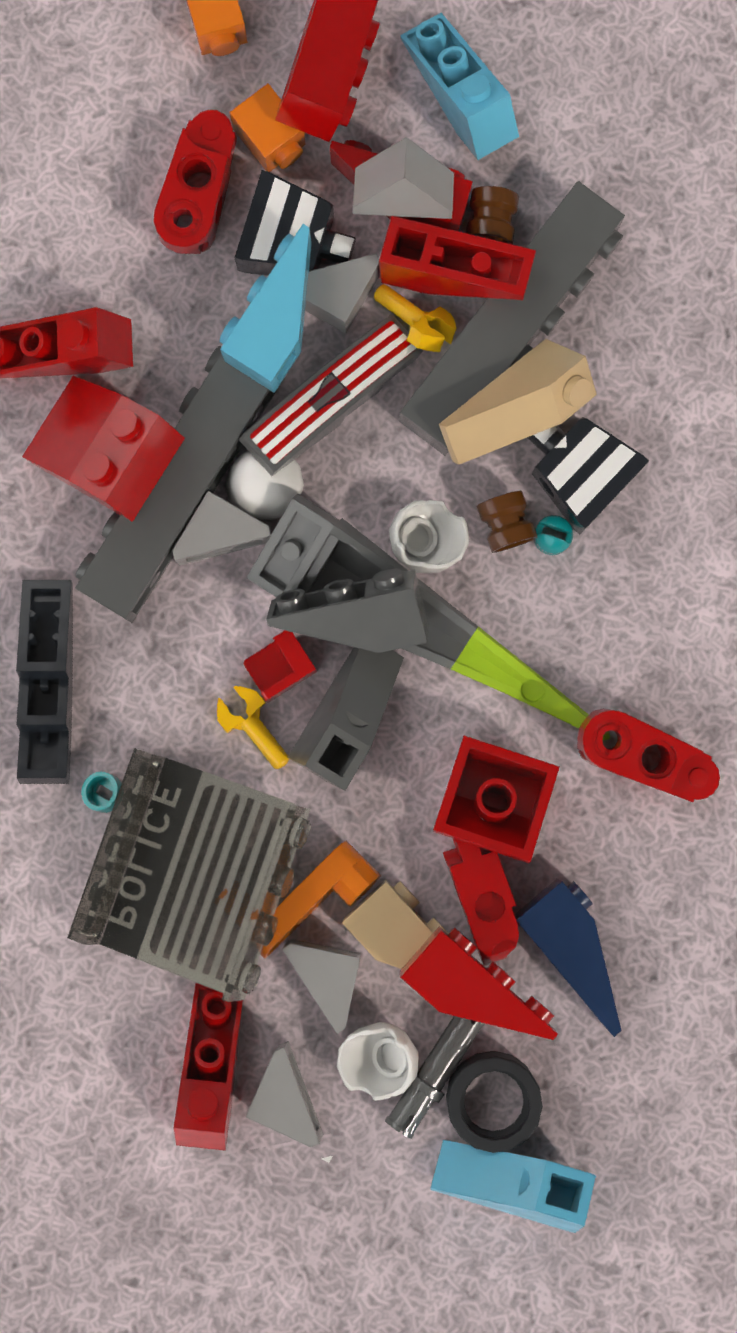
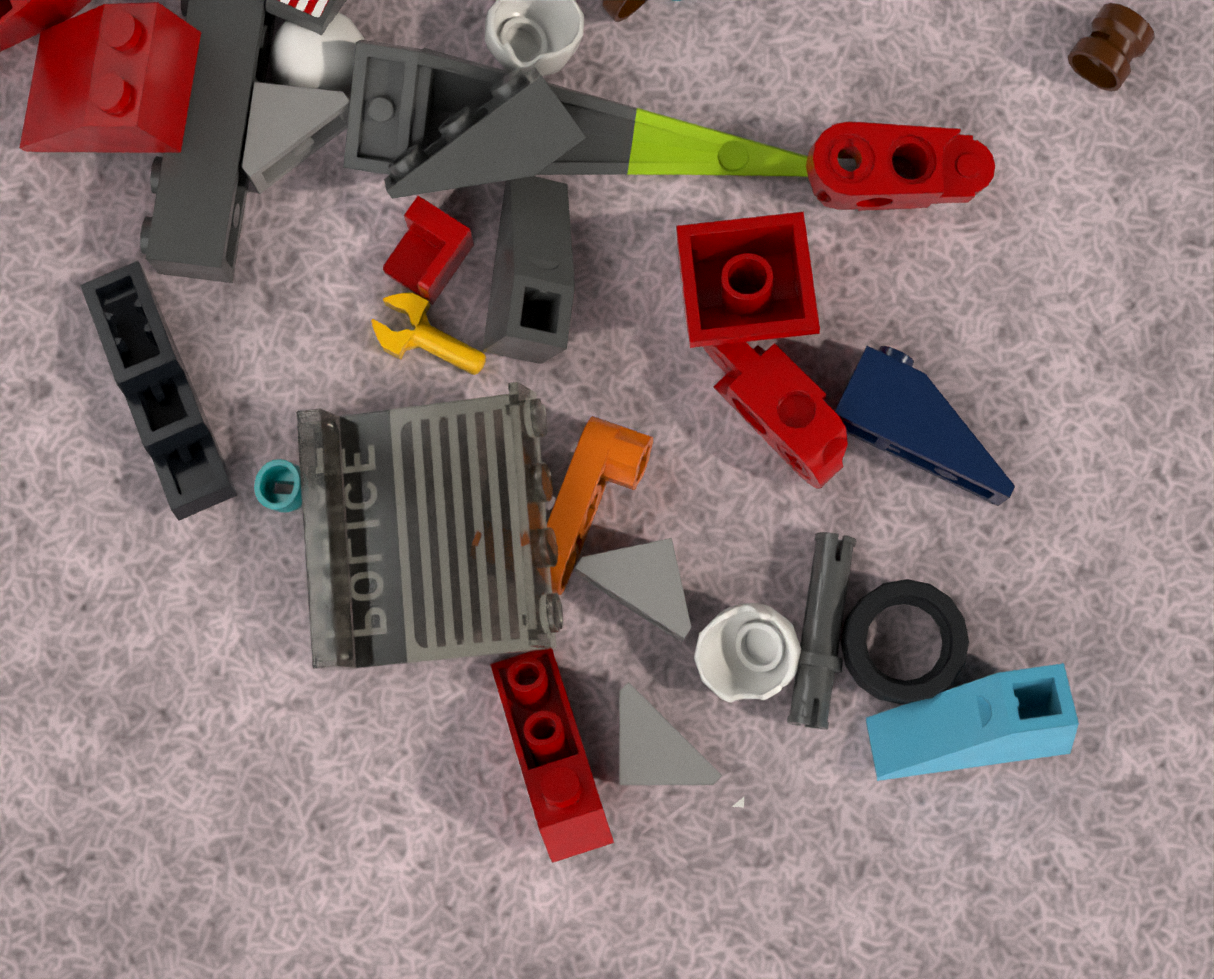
camera: 25 degrees left, 5 degrees down
(389, 924) = (710, 499): tan slope -> none
(463, 987) = (806, 508): red slope -> none

